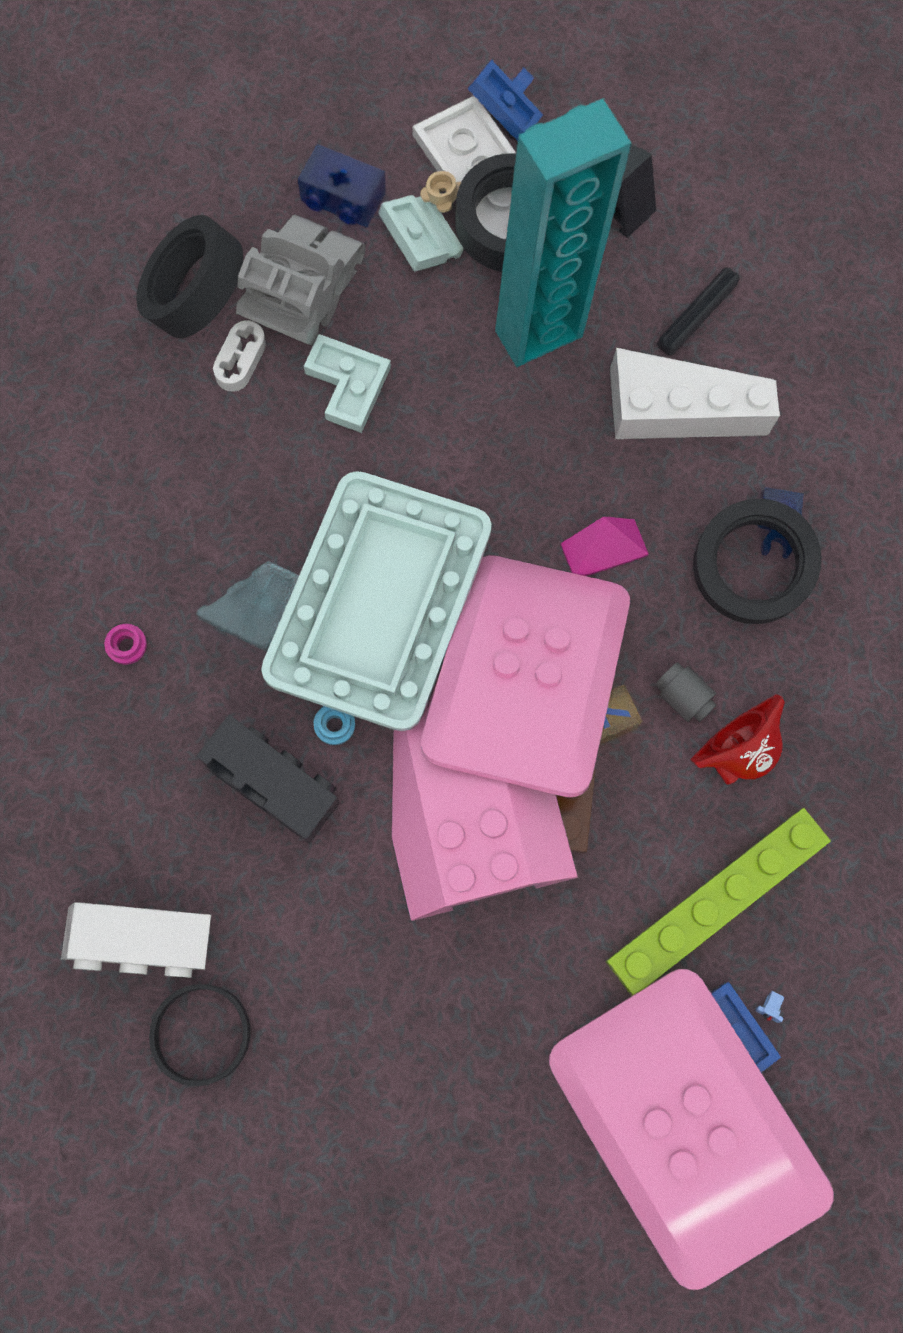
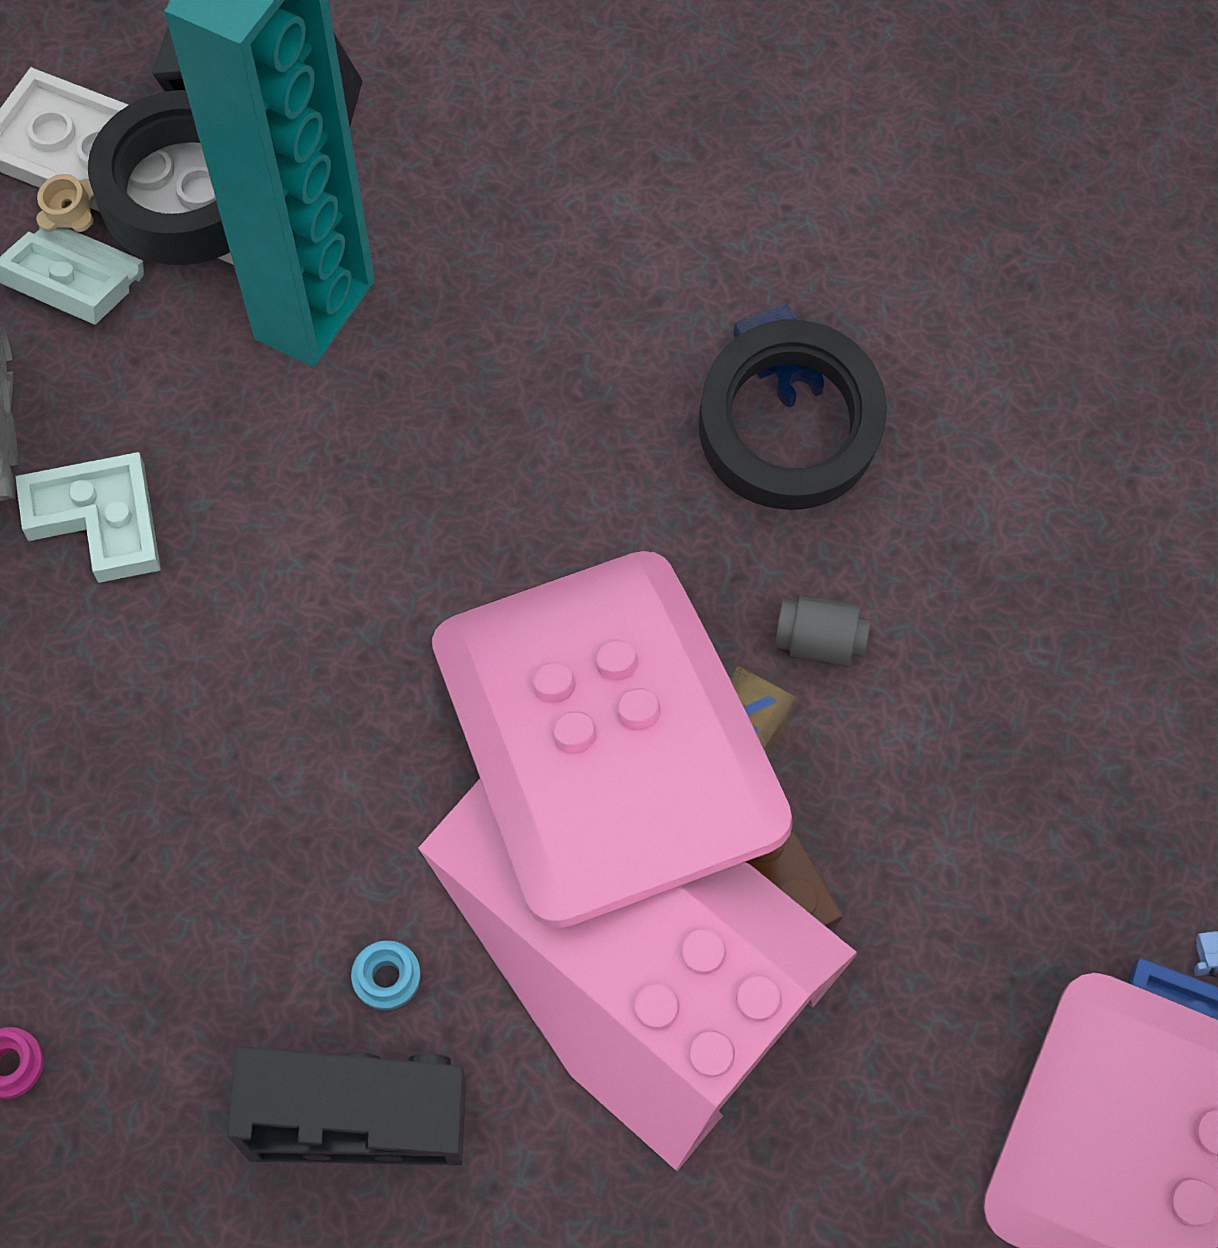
camera: 30 degrees left, 10 degrees down
(253, 605) = (166, 888): clear light blue wing -> none
(377, 601) = (336, 772): light aqua wedge -> none
(505, 98) = (77, 50): blue plate -> none
(604, 546) = (584, 517): dark pink slope -> none
(687, 399) = (563, 275): white wedge -> none
(698, 311) = (501, 167): black axle -> none
(717, 902) = (1048, 874): lime plate -> none
(747, 744) = (941, 645): red hat -> none

